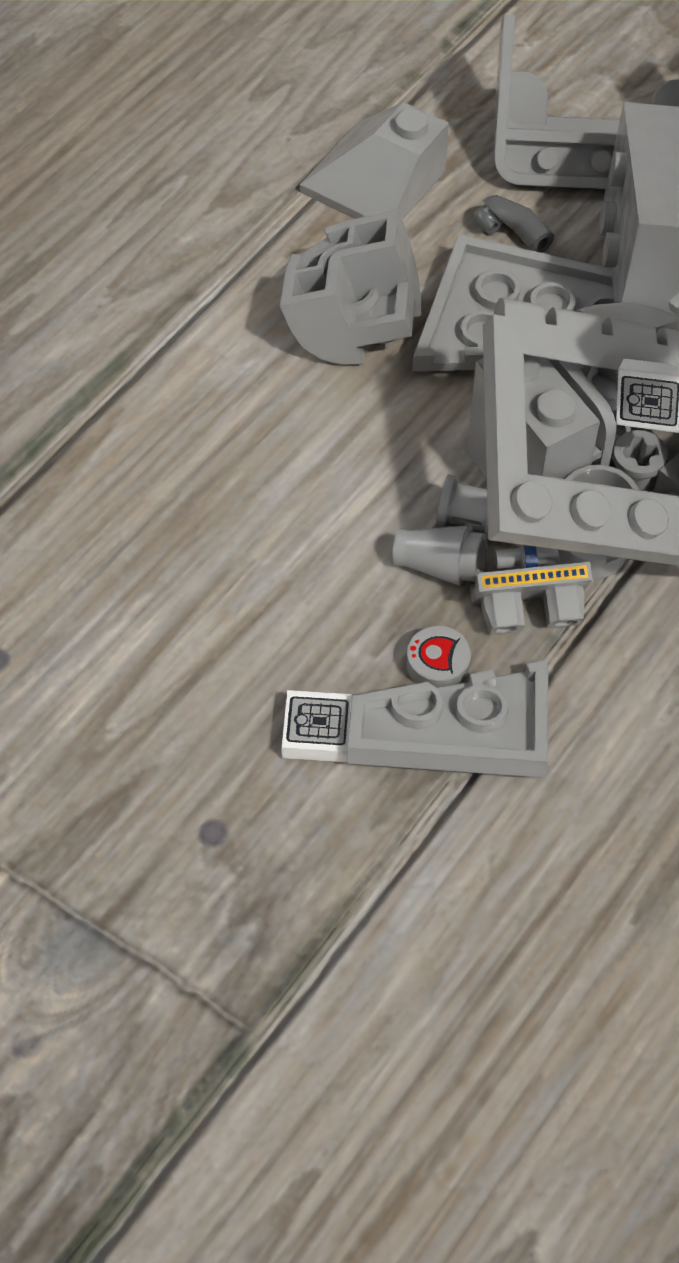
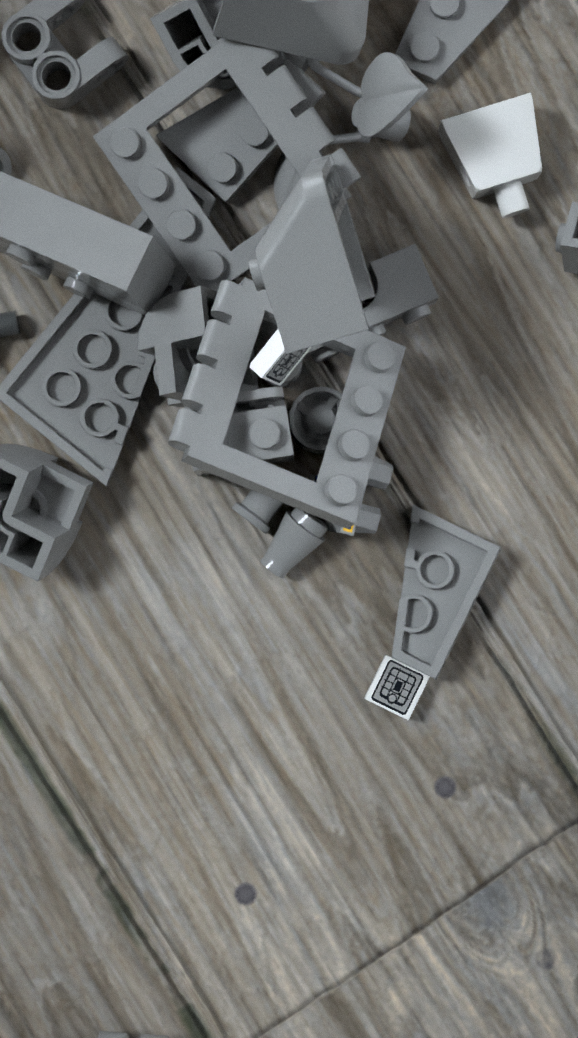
camera: 75 degrees left, 30 degrees up
(438, 656) = (376, 579): light grey tile -> none

